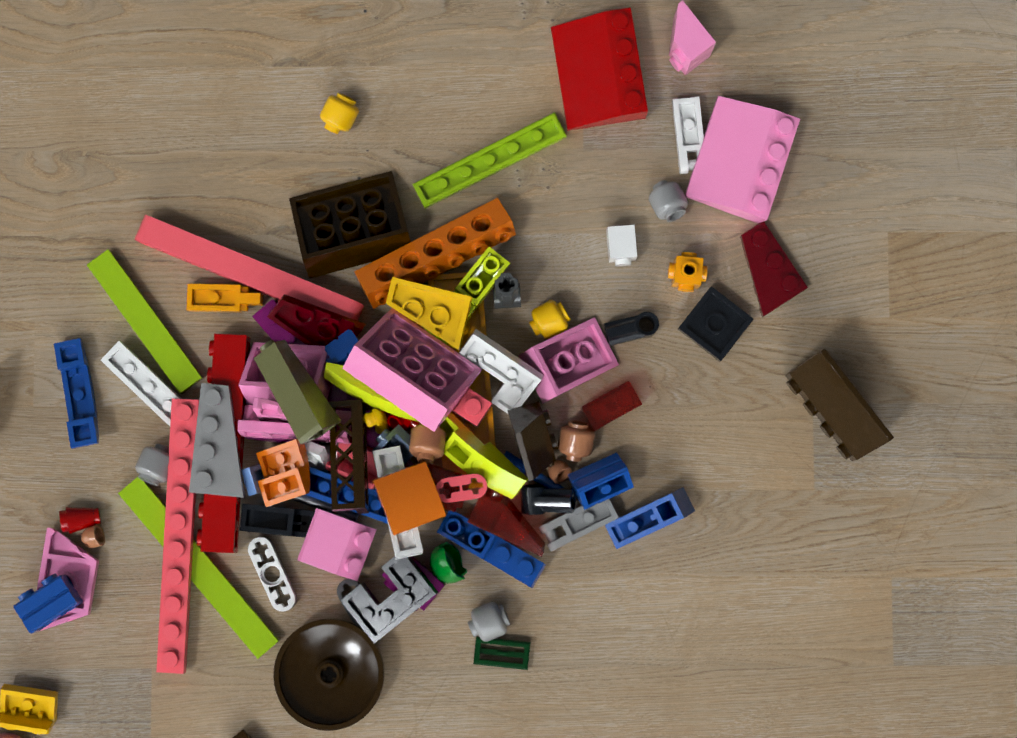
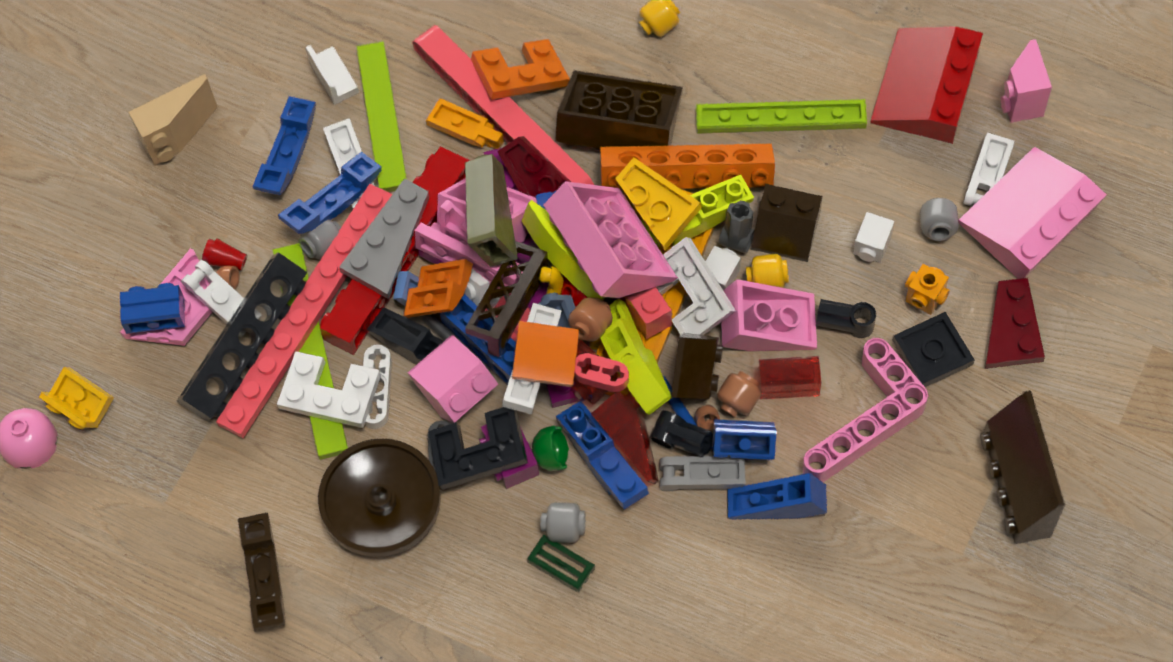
camera: 30 degrees right, 20 degrees down
(79, 301) = (332, 74): none -> white panel
(101, 562) = (218, 296): none -> white plate
(130, 577) = (195, 395): none -> black brick
(146, 427) = (334, 197): none -> blue slope
(218, 615) = (346, 406): none -> white plate
(238, 245) = (540, 74): none -> orange plate
(509, 332) = (724, 265): none -> white brick
(543, 264) = (786, 222): none -> dark brown slope
(695, 410) = (872, 419): none -> bright pink beam

